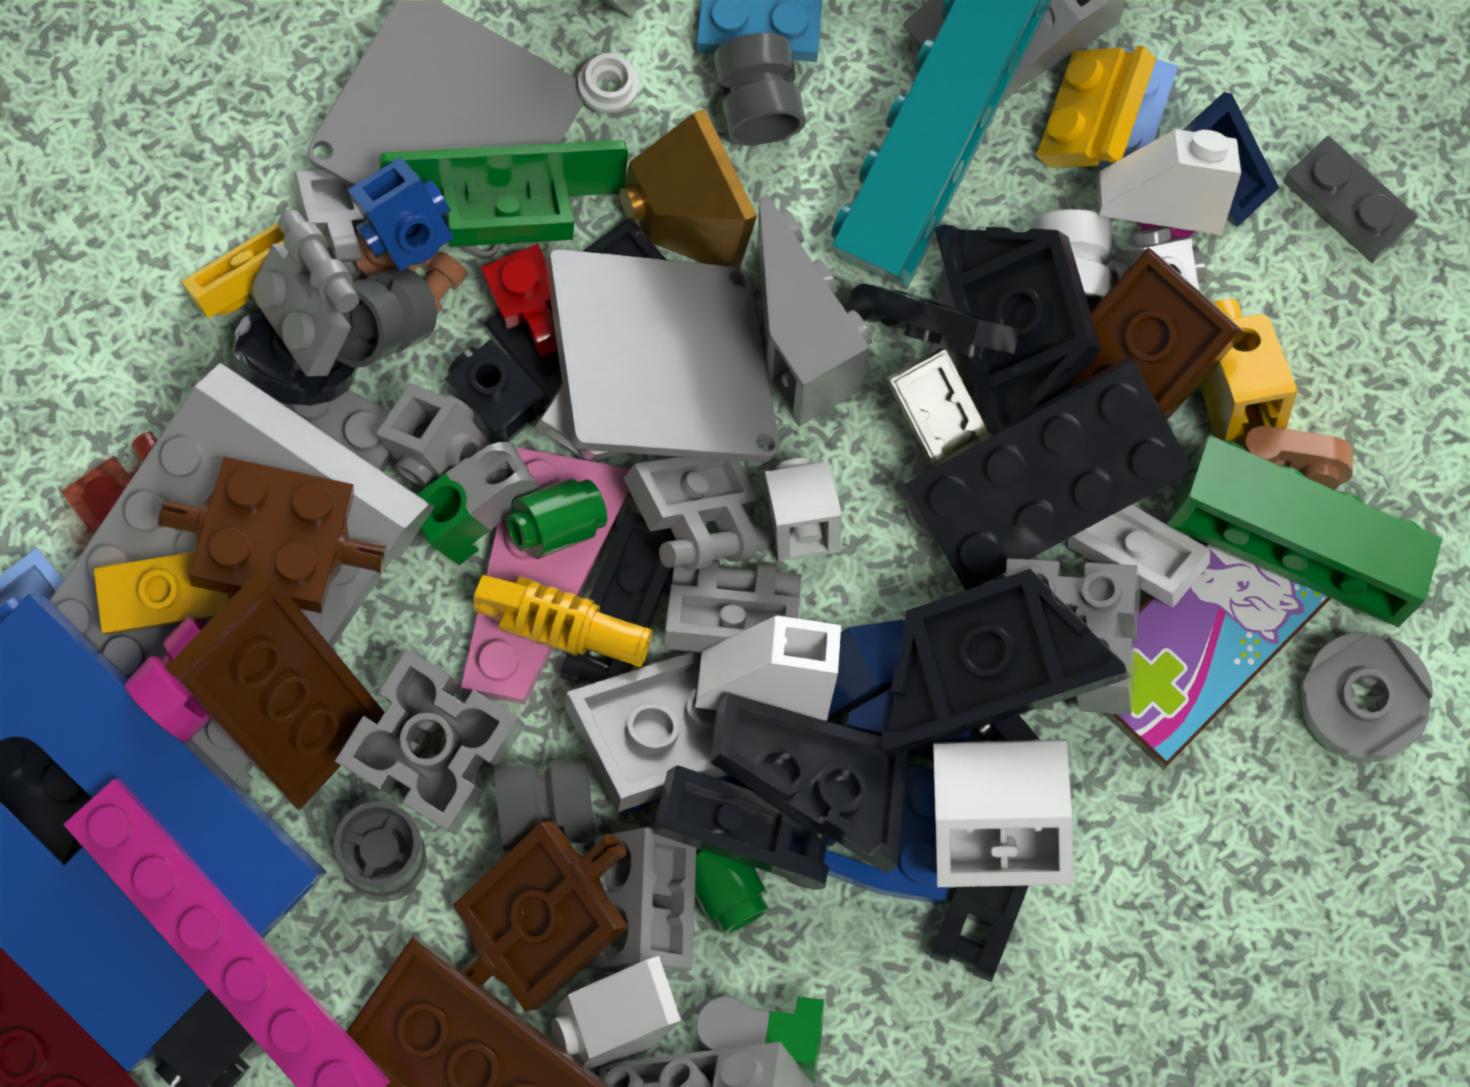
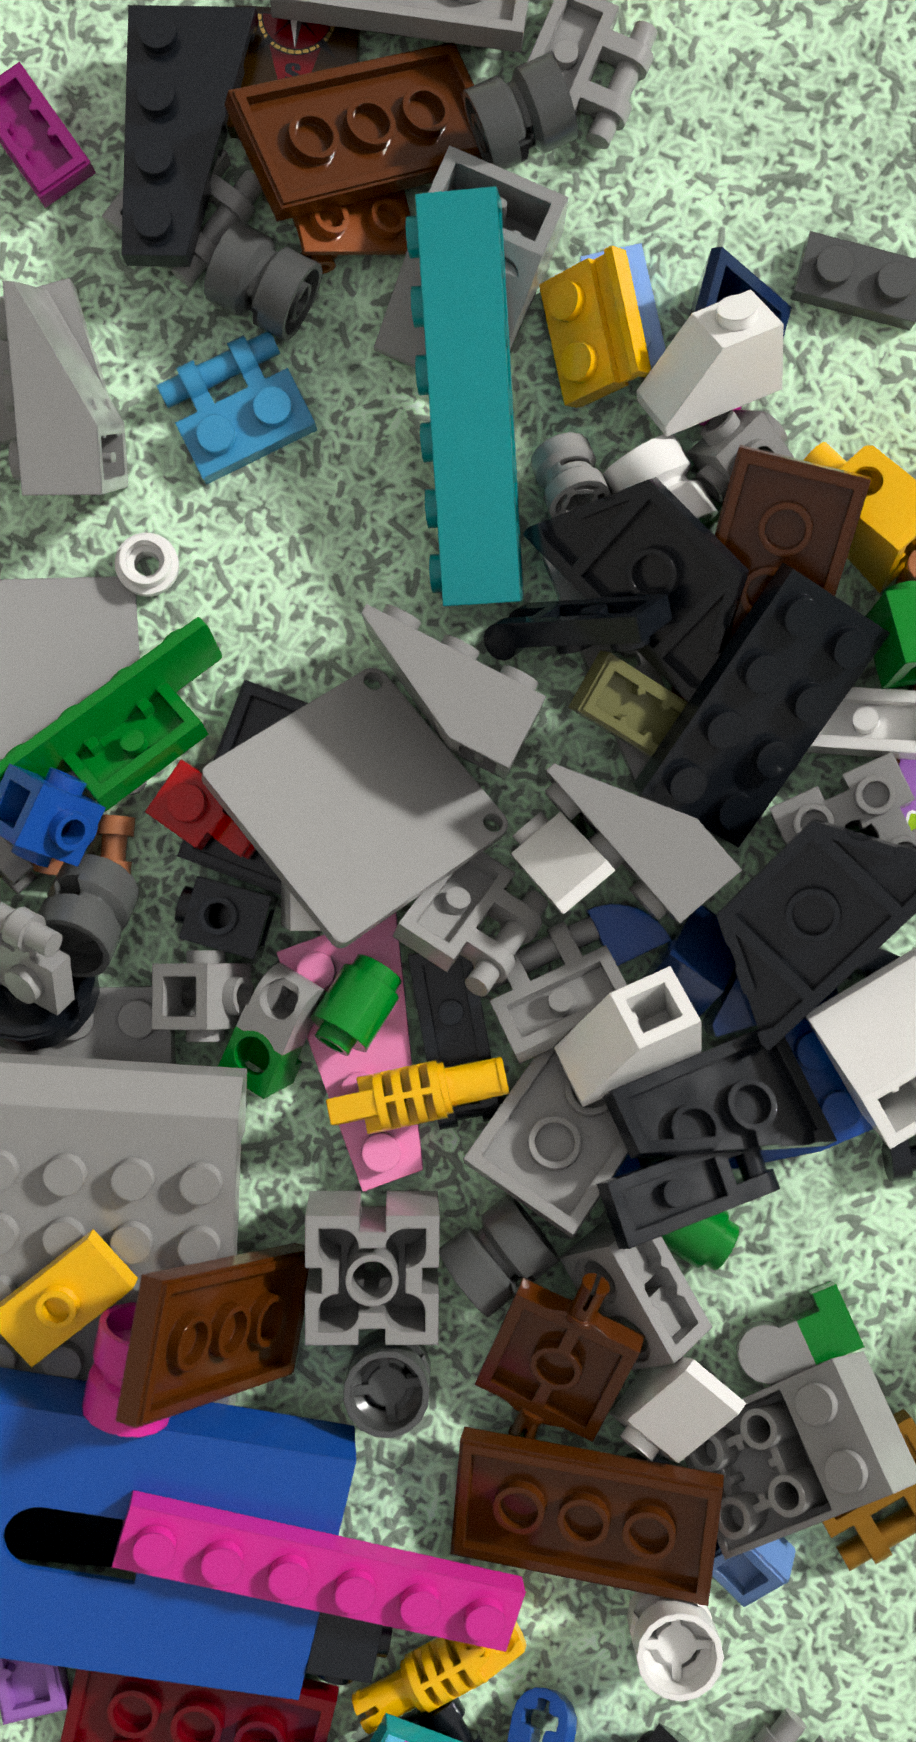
camera: 30 degrees left, 15 degrees up
(273, 522) = (125, 1205): reddish brown plate -> none
(690, 195) = (288, 633): pearl gold slope -> none
(759, 89) = (277, 481): dark grey wheel -> none
(826, 600) = (627, 931): none -> blue tile
(894, 528) = (663, 849): none -> light grey slope
(1003, 200) = (568, 473): none -> light grey wheel

